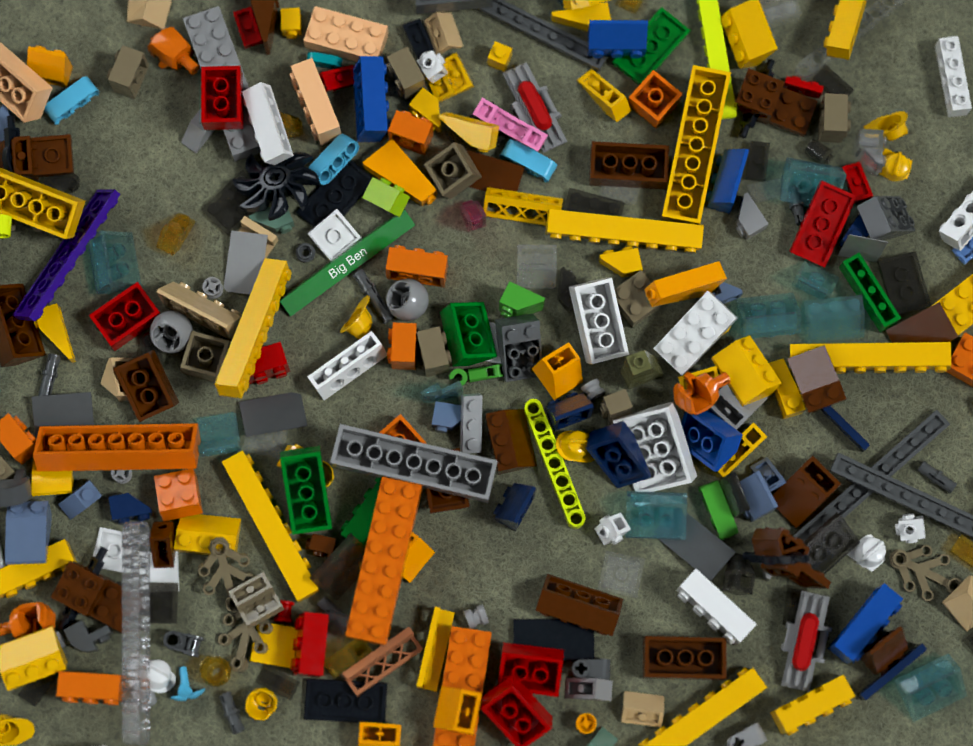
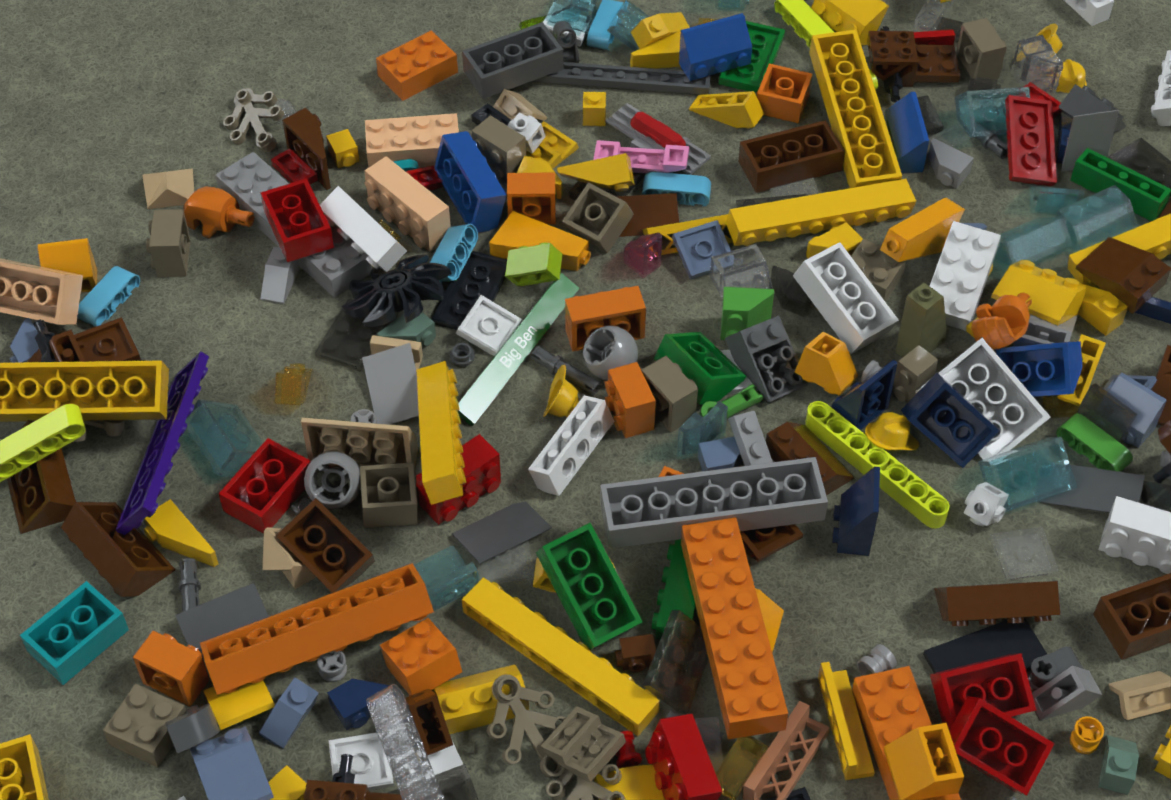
camera: 20 degrees left, 25 degrees down
(519, 227) = (698, 246): none -> sand blue plate

